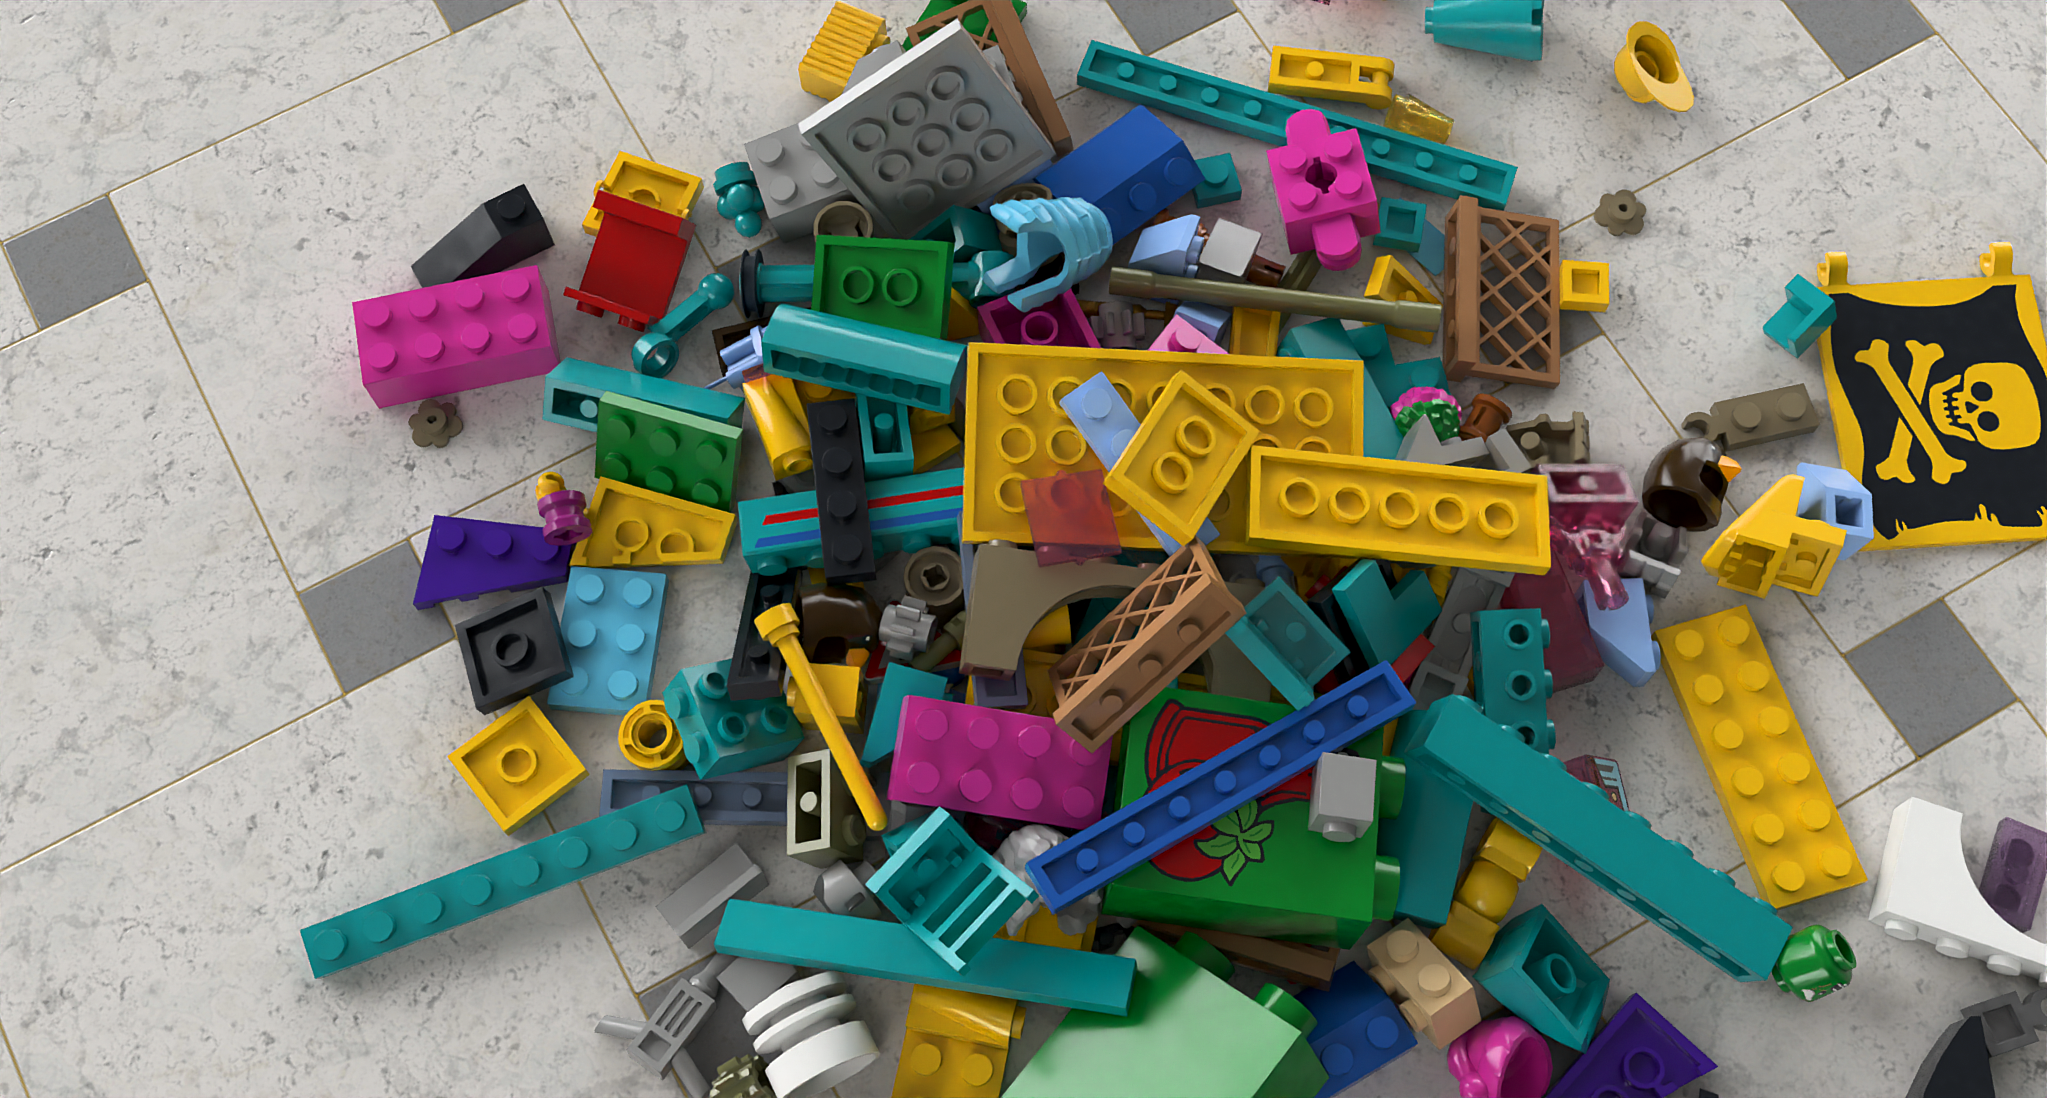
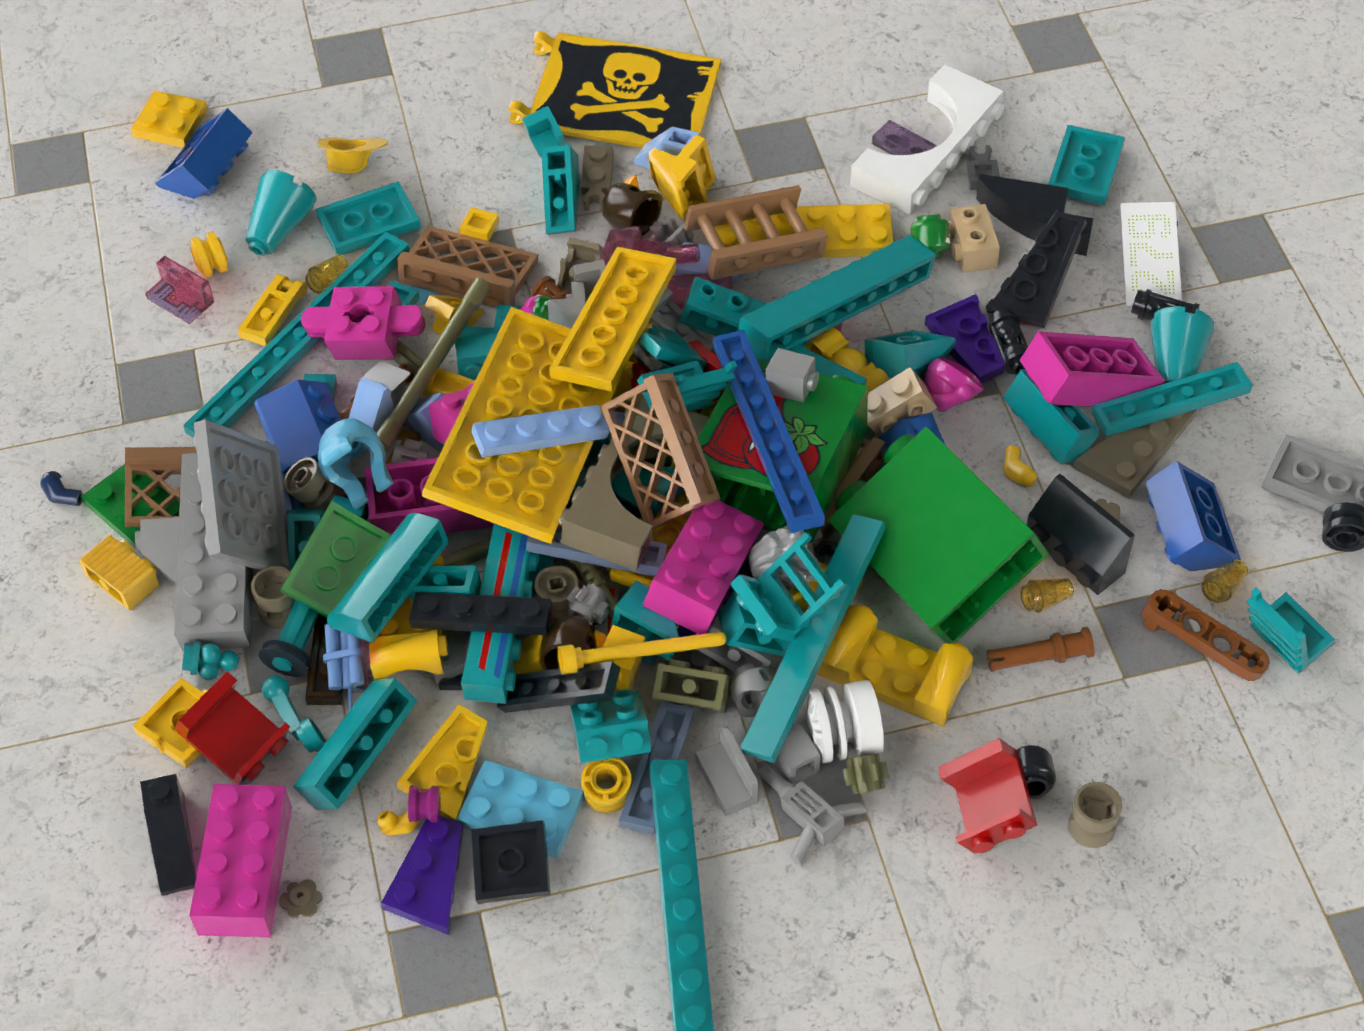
camera: 75 degrees left, 15 degrees down
(518, 765) = (596, 877): yellow plate -> none
(667, 451) = (398, 729): green plate -> none
(1070, 517) = (561, 472): clear pink piece -> none
(1181, 458) = (548, 397): yellow plate -> none
(1541, 135) = (366, 217): none -> teal plate
(1620, 213) = (434, 199): dark tan plant -> none
(1678, 725) = (760, 254): none -> medium nougat fence
(1693, 374) = (560, 188): none -> teal slope
(1842, 1036) = (973, 238): none -> tan brick

